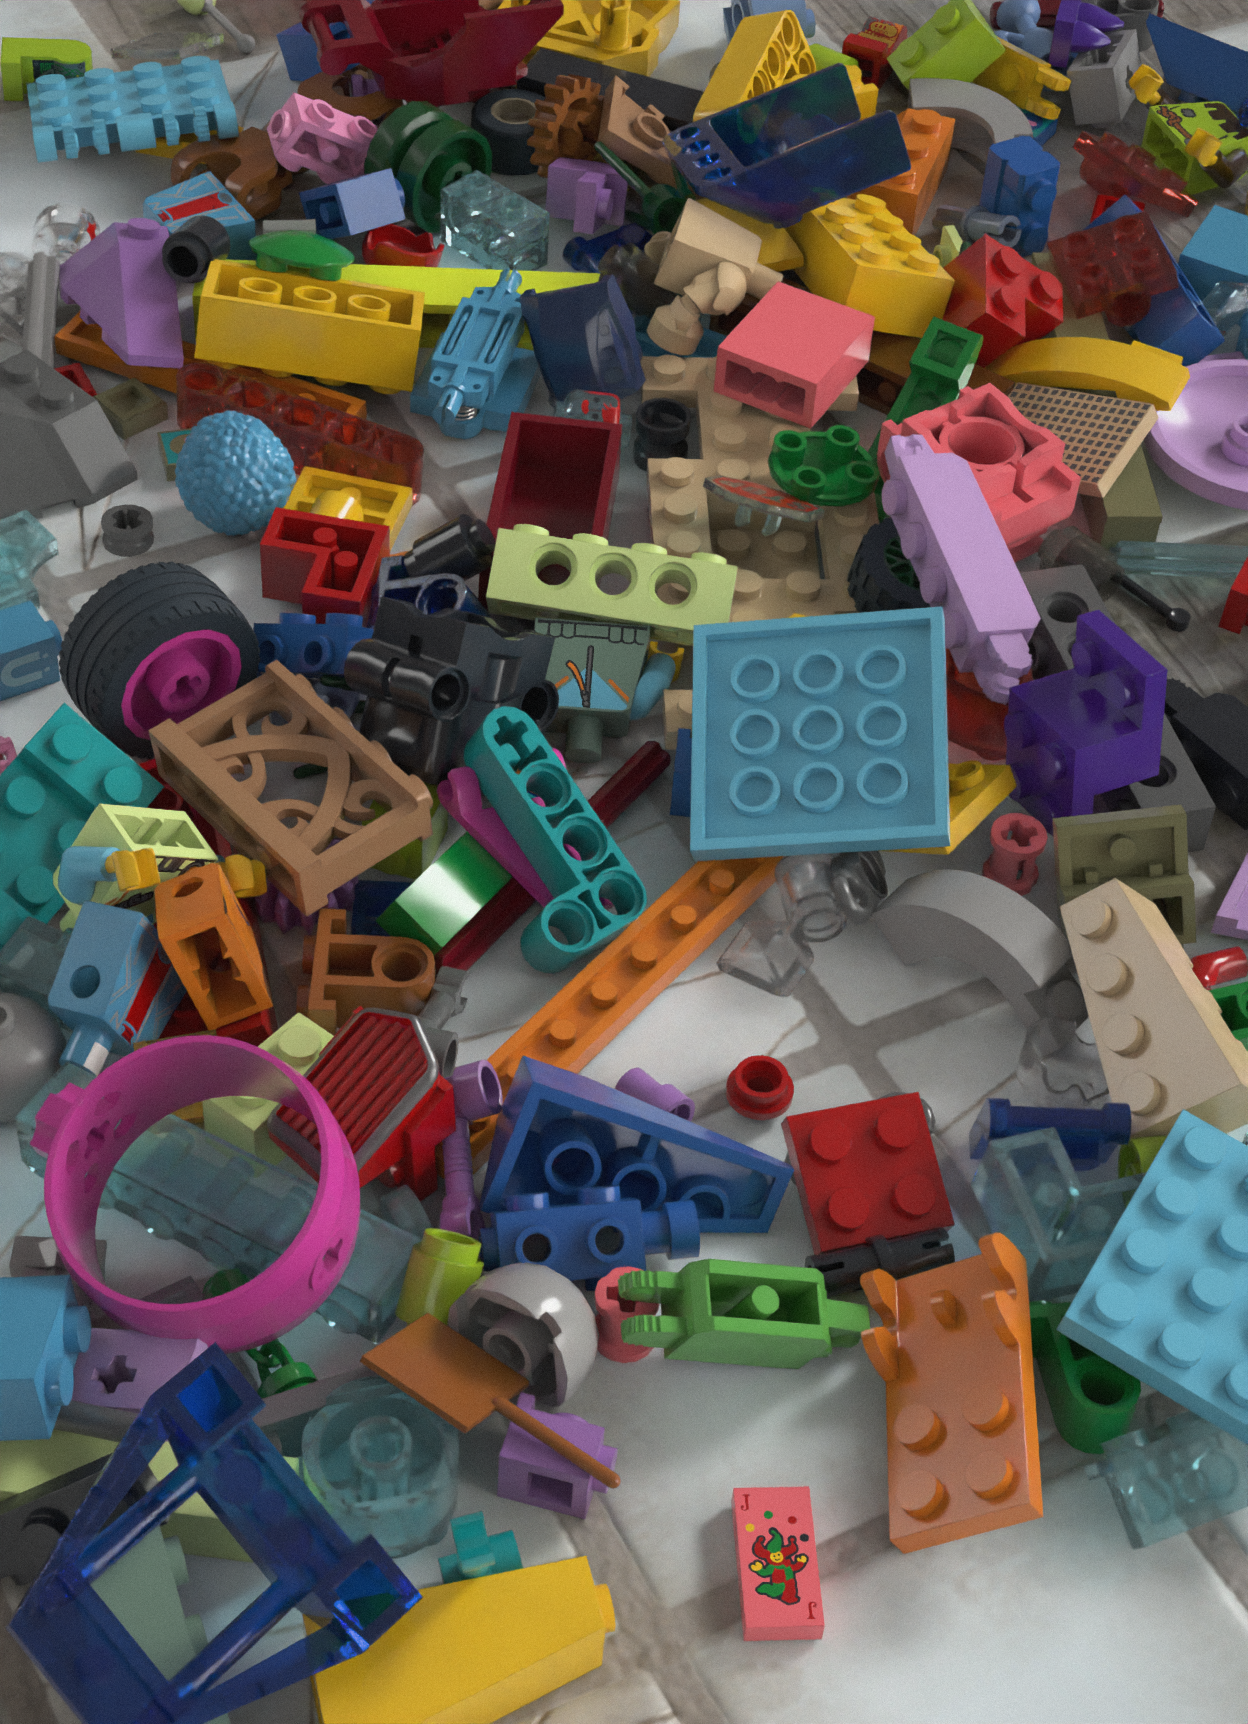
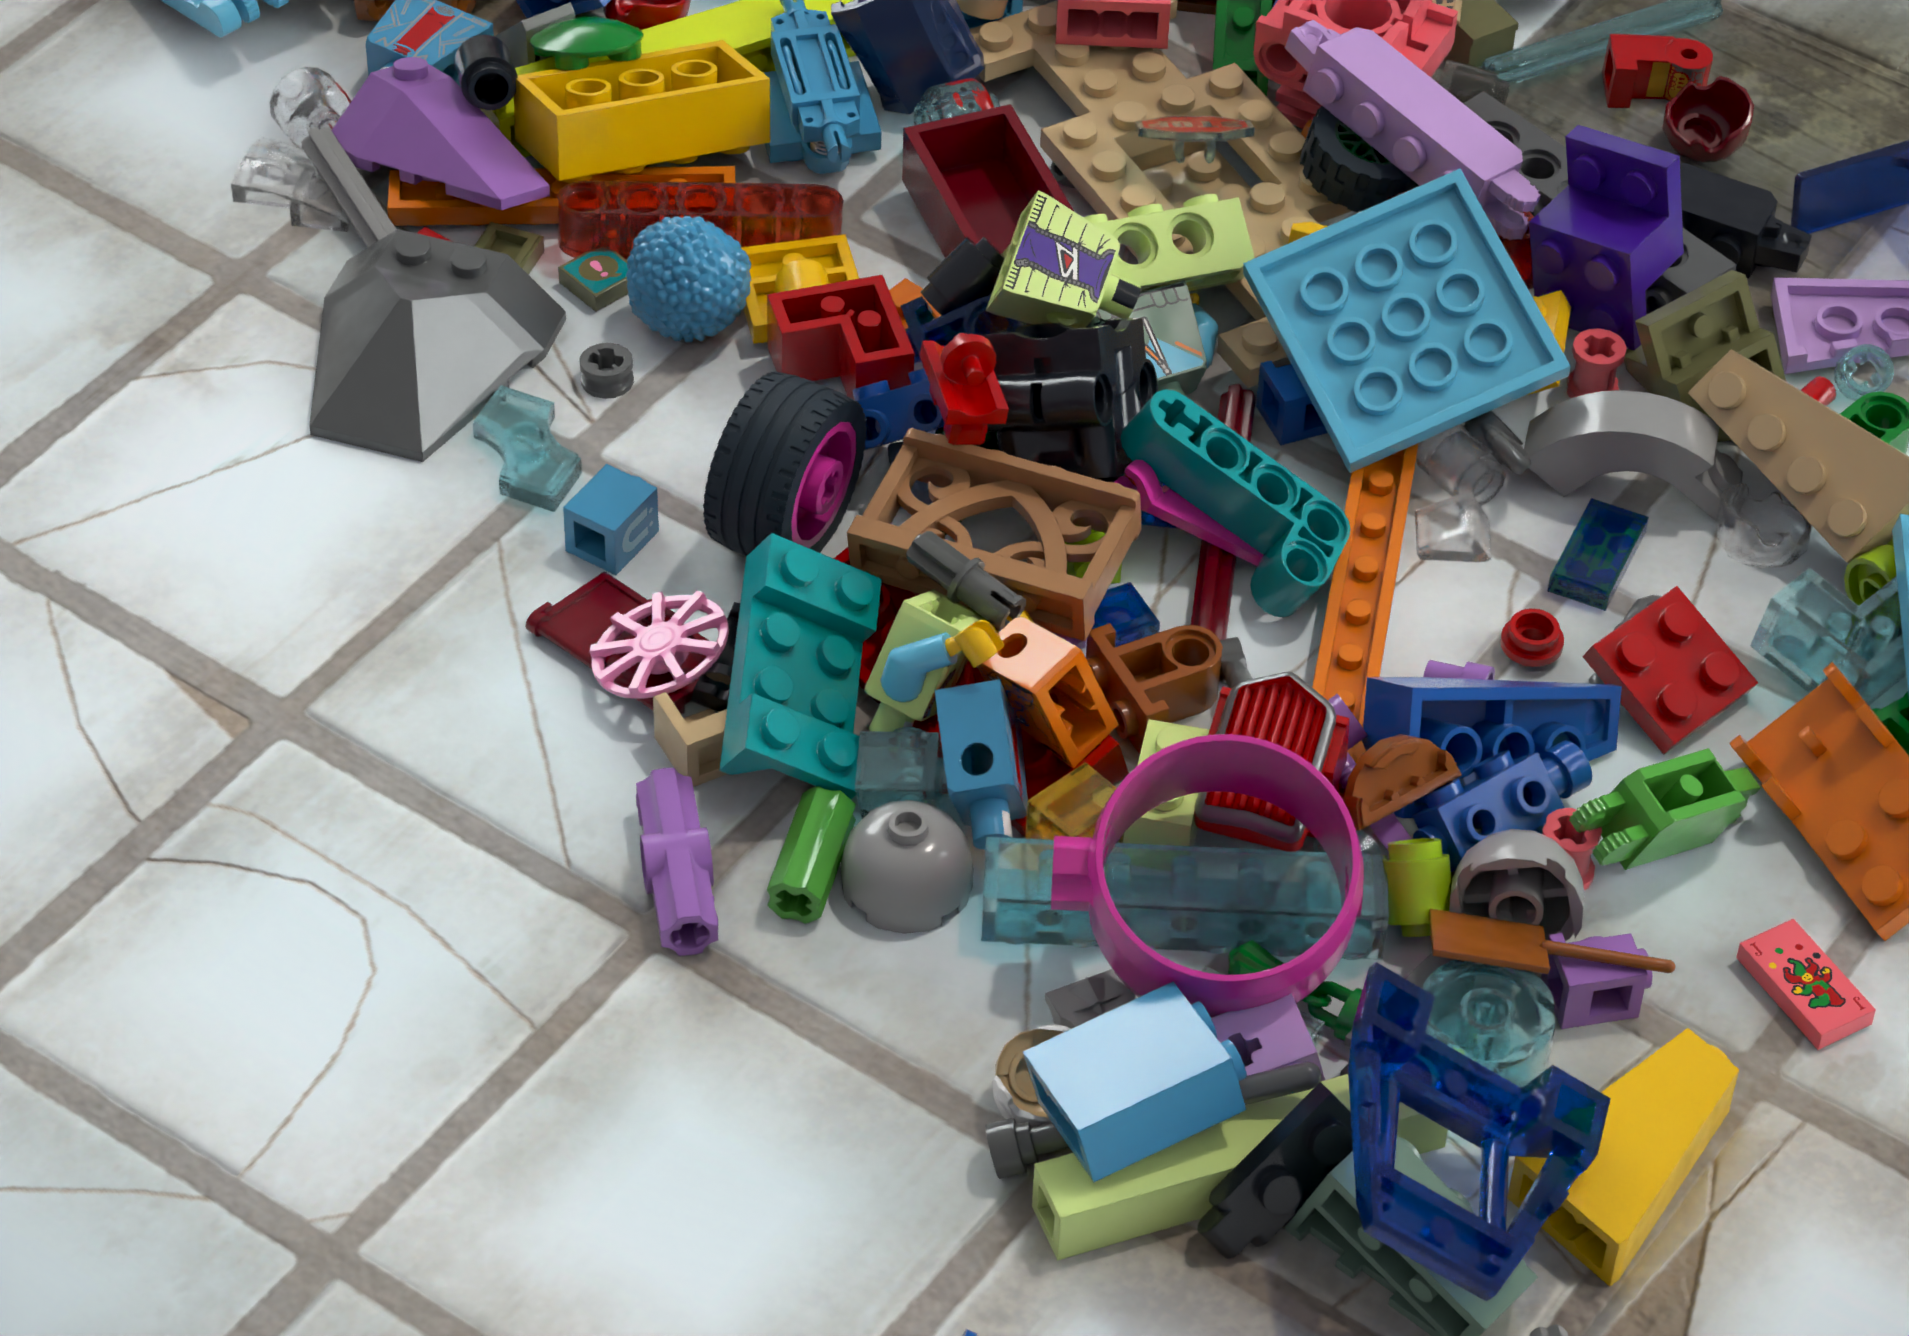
camera: 25 degrees left, 0 degrees up
(207, 811) = (965, 579): none -> dark grey axle
(329, 637) = (964, 387): none -> red hips
(445, 895) = (1173, 577): green slope -> none
(478, 1163) = (1395, 775): none -> dark orange tile
(478, 1553) = (1620, 1054): teal brick -> none
(512, 569) = (1060, 269): none -> yellowish green torso
(667, 433) = (1030, 93): black wheel -> none
(823, 466) = (1216, 80): green dish -> none
(892, 1033) = (1598, 554): none -> tile
(897, 1256) = (1722, 727): black pin -> none
(1085, 1133) = (1759, 581): clear blue plate -> none
(1177, 618) = (1571, 113): black hinge -> none

